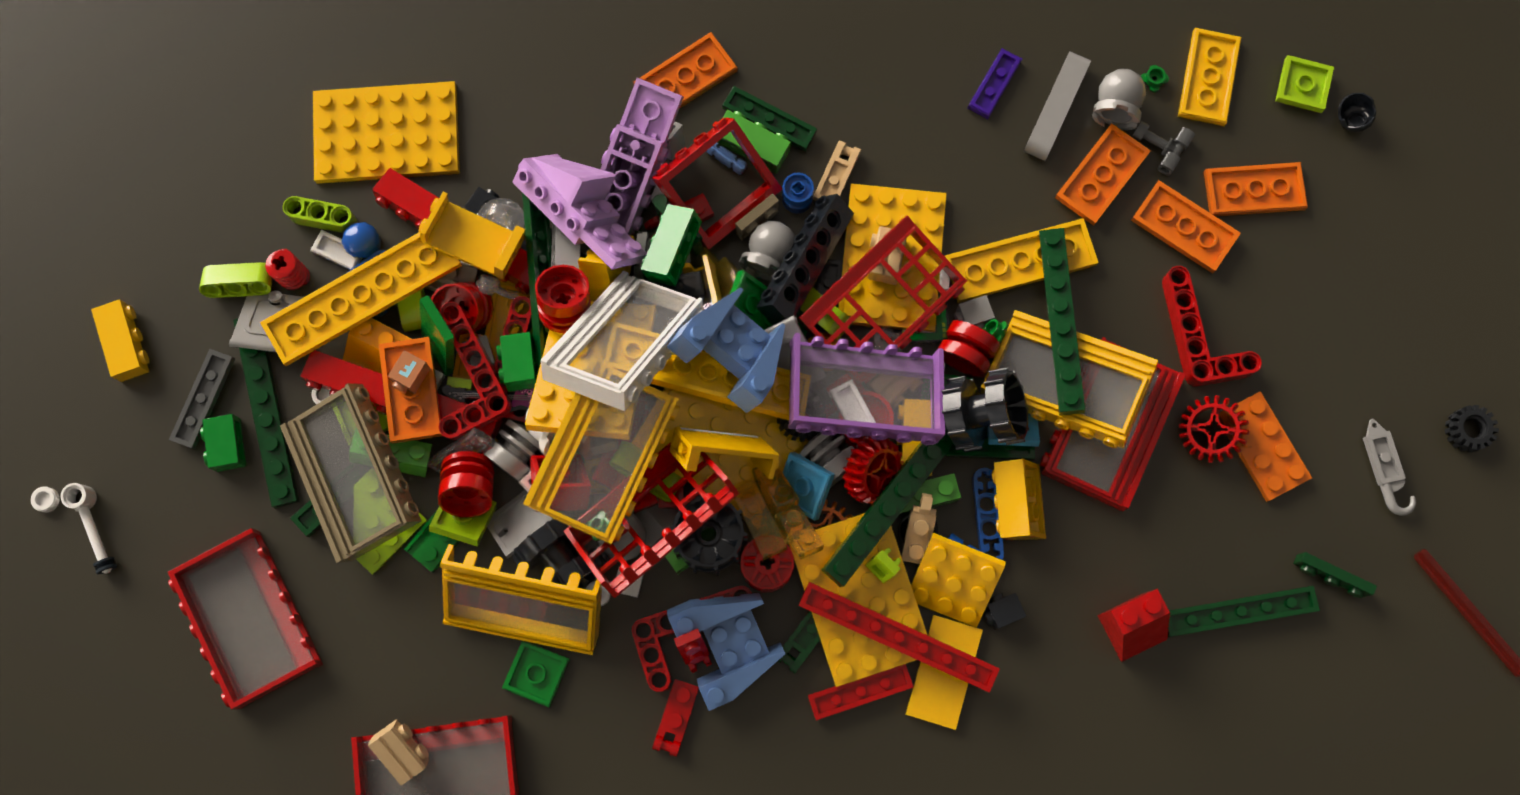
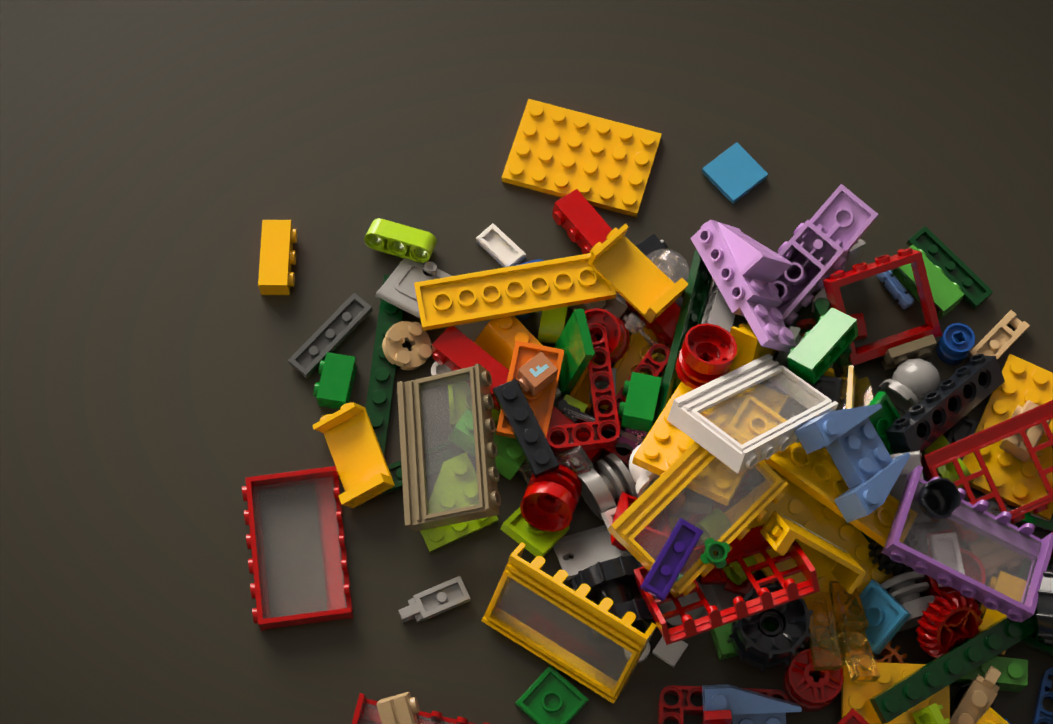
camera: 20 degrees right, 10 degrees down
(45, 499) = (155, 374): white tile -> none
(68, 497) = (188, 450): white piece -> none
(267, 508) = (355, 454): none -> yellow panel
(274, 395) = (401, 356): none -> tan plate
(287, 269) = (451, 246): red piece -> none
(311, 208) = (502, 218): lime beam -> none
(361, 240) = (526, 244): blue hair -> none
(394, 620) = (435, 601): none -> light grey hinge
(416, 429) = (526, 428): none -> black plate
(429, 547) = (493, 545): green plate -> none
(538, 96) = (734, 173): none -> dark azure tile
(592, 514) = (671, 559): none -> dark purple tile
(636, 487) = (722, 550): none -> green plate
(693, 69) = (894, 198): orange tile -> none
(824, 357) = (939, 498): none -> black hair

